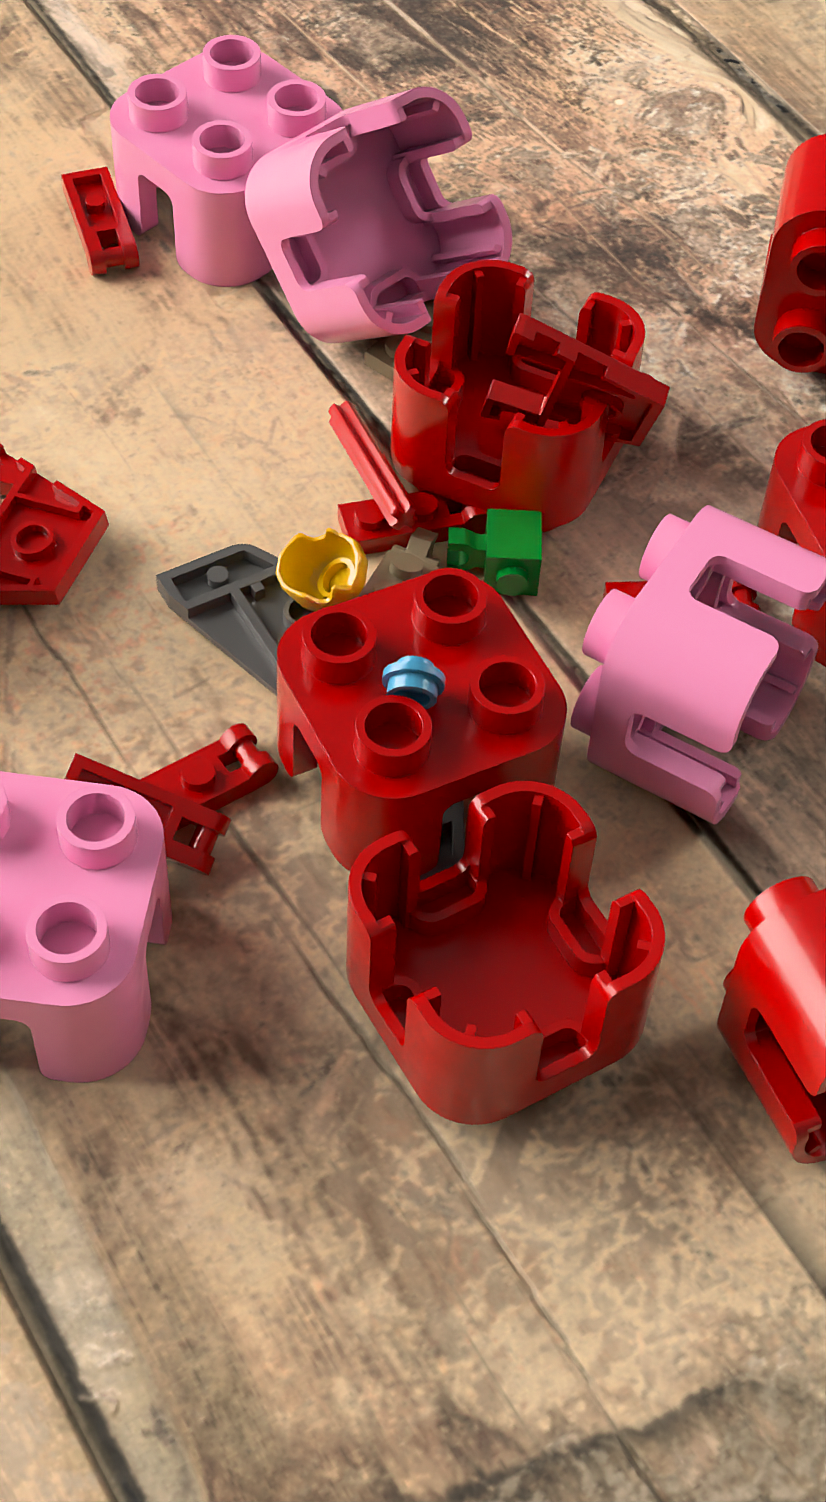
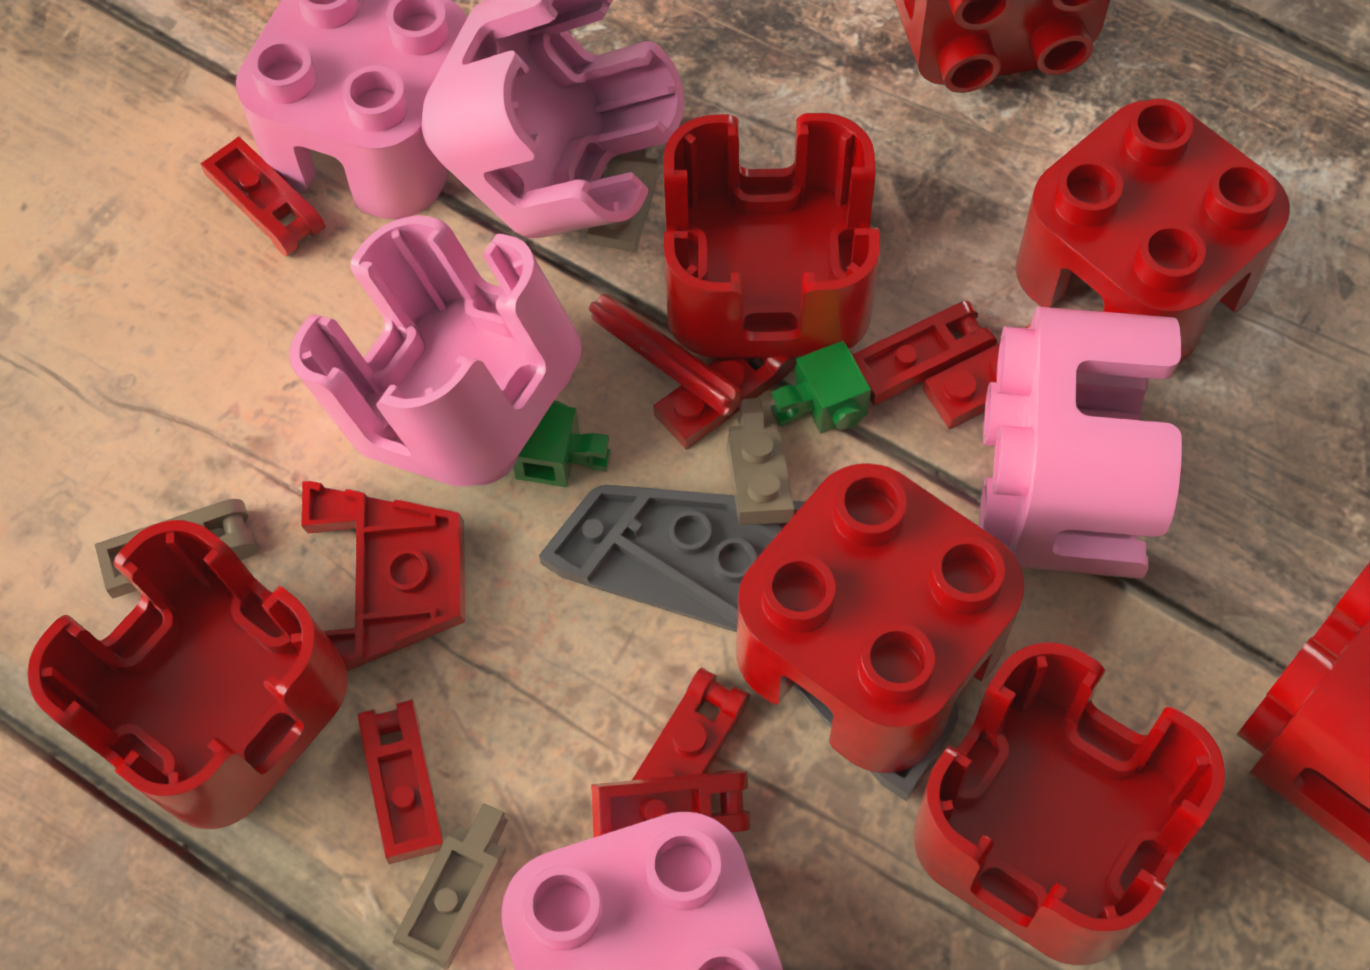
camera: 20 degrees left, 10 degrees up
(185, 387) = (458, 360): none -> bright pink piece
(225, 495) = (558, 445): none -> green brick
(322, 569) = (696, 491): yellow hair -> none
(415, 679) = (887, 603): dark azure plate -> none
(582, 371) = (831, 220): red wing -> none
(593, 557) = (922, 350): none -> red plate

